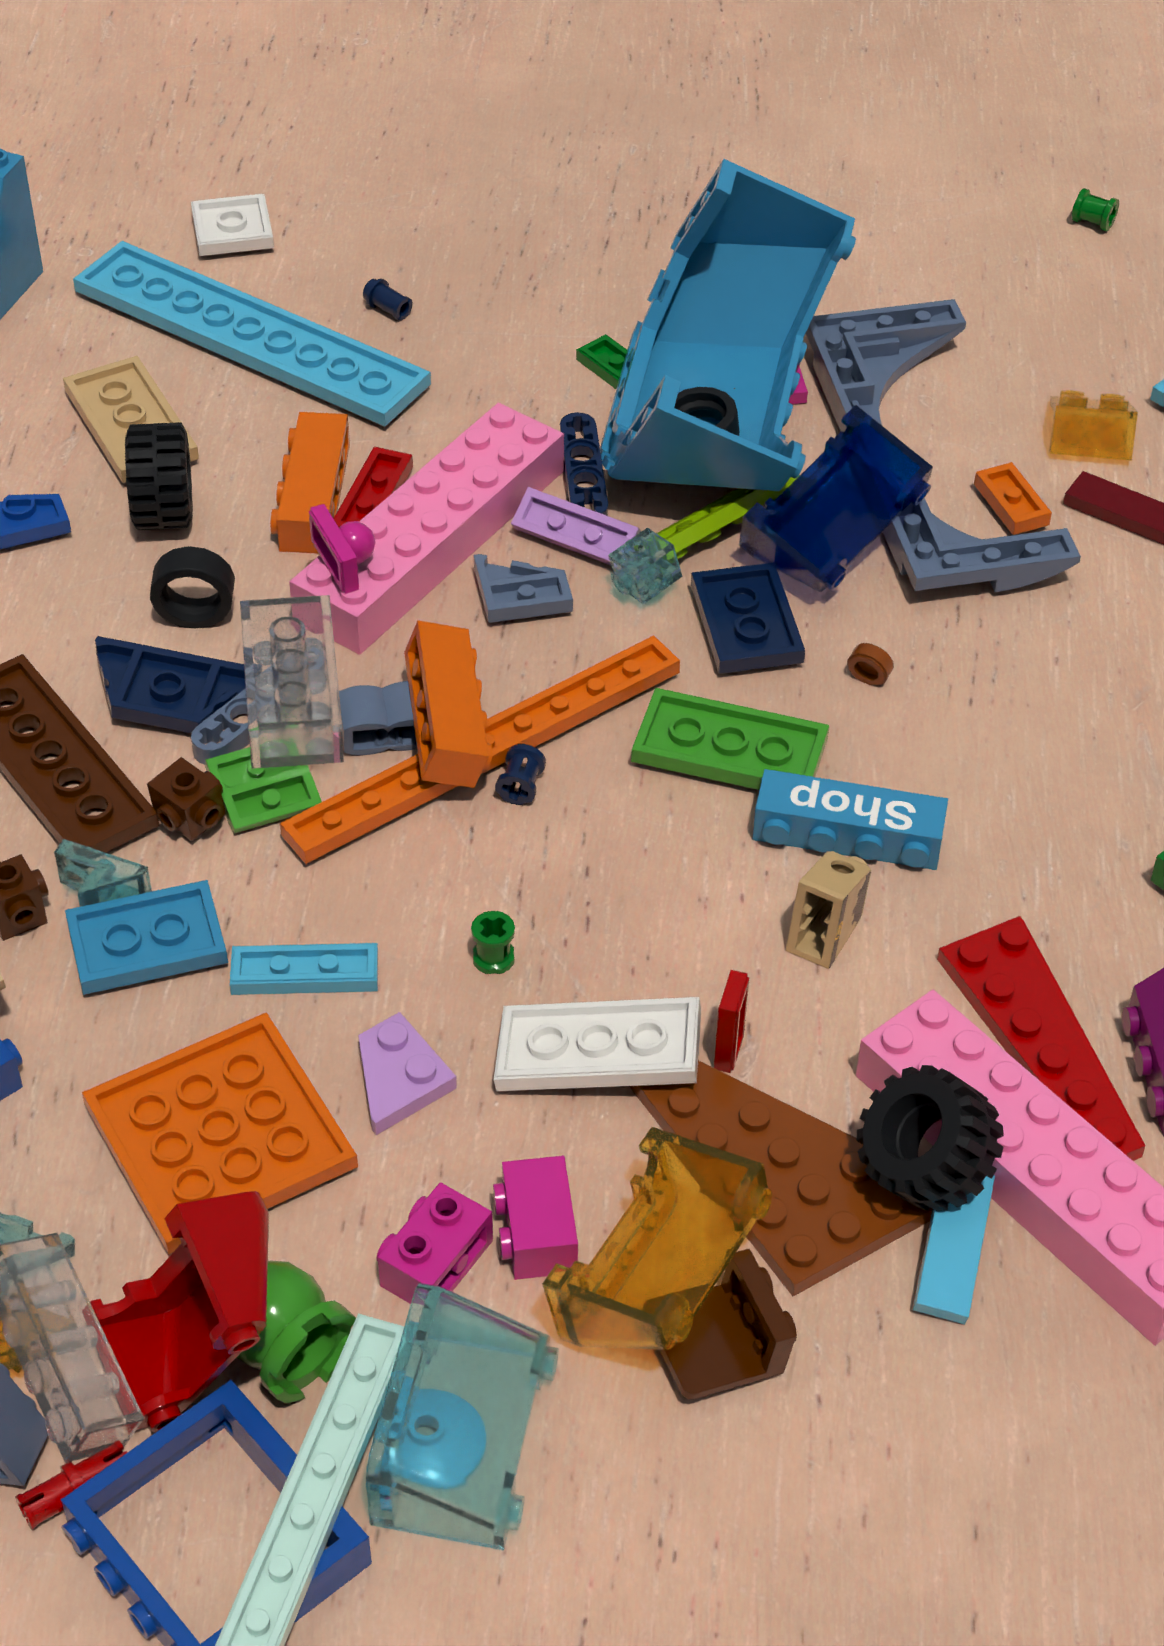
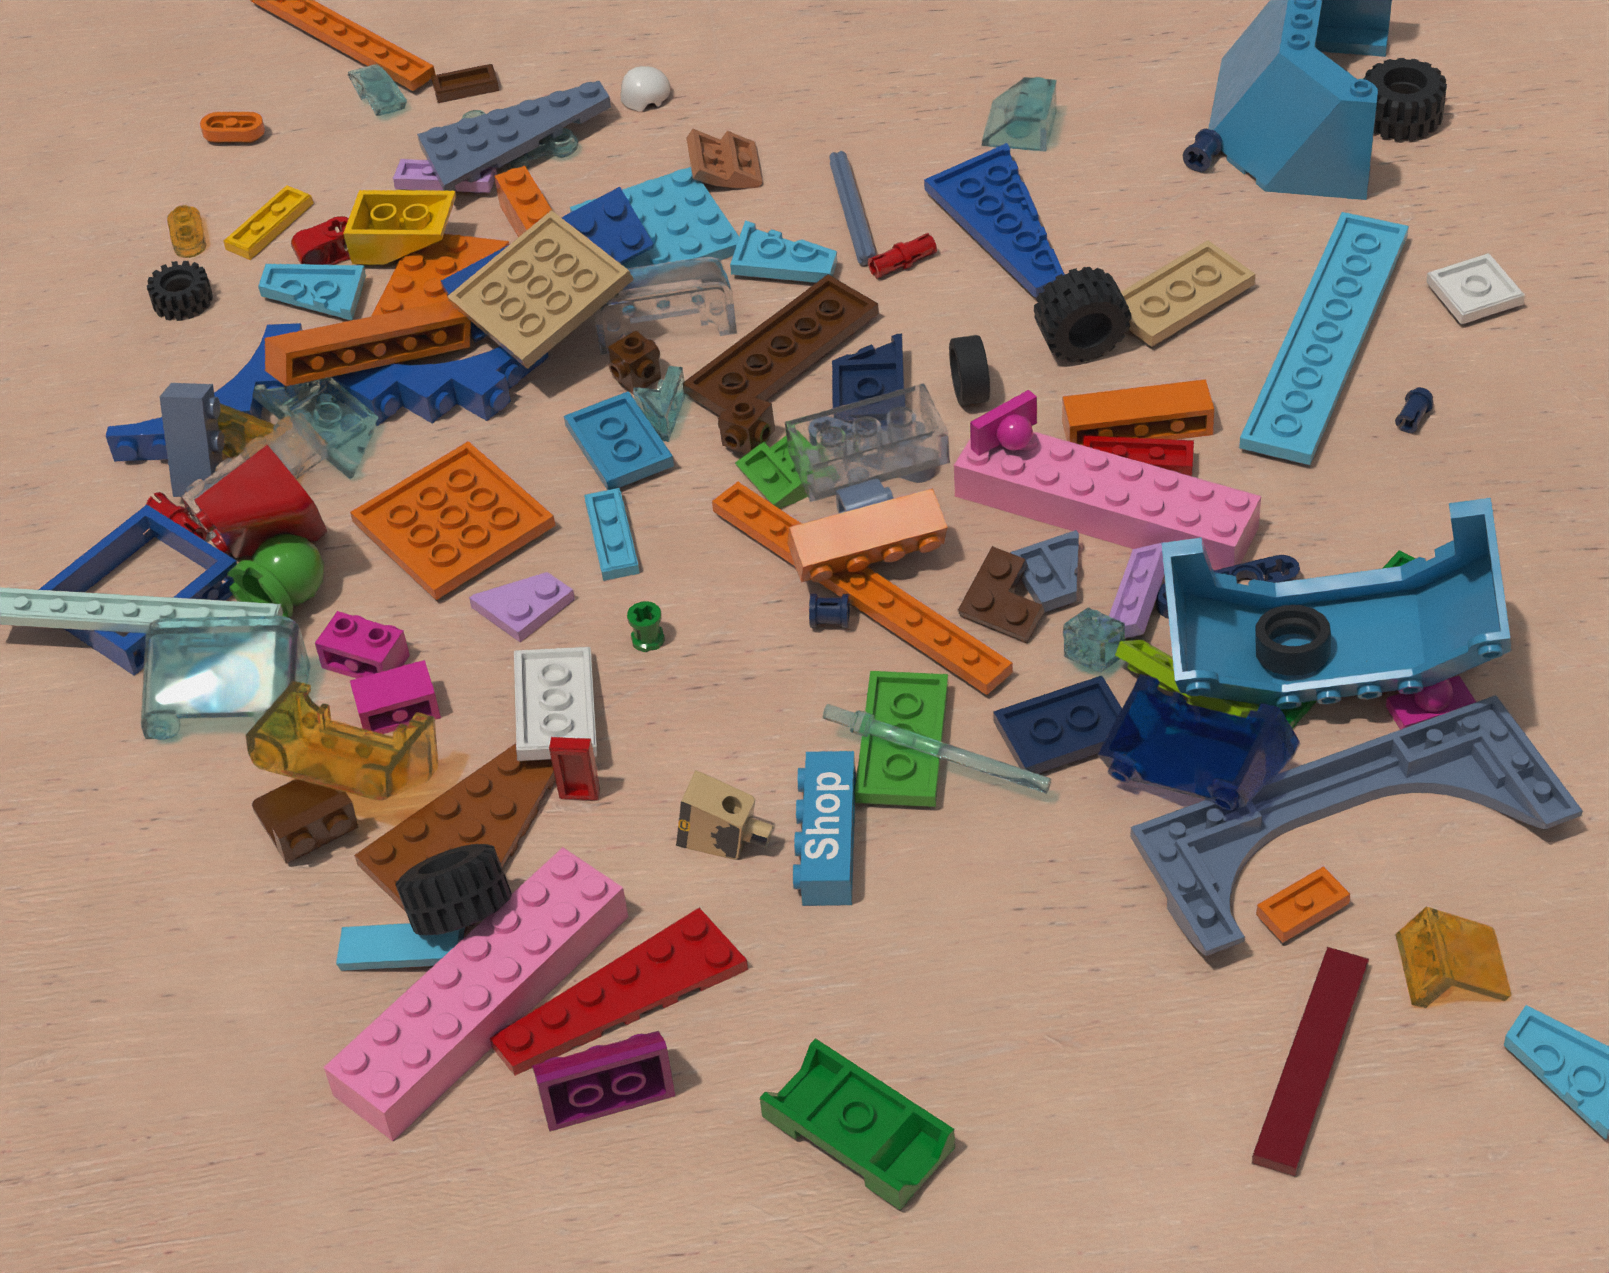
camera: 85 degrees right, 0 degrees up
(546, 640) = (993, 600): none -> reddish brown plate
(724, 755) = (865, 724): none -> clear light blue bar
(870, 664) = (1026, 819): dark orange tile -> none

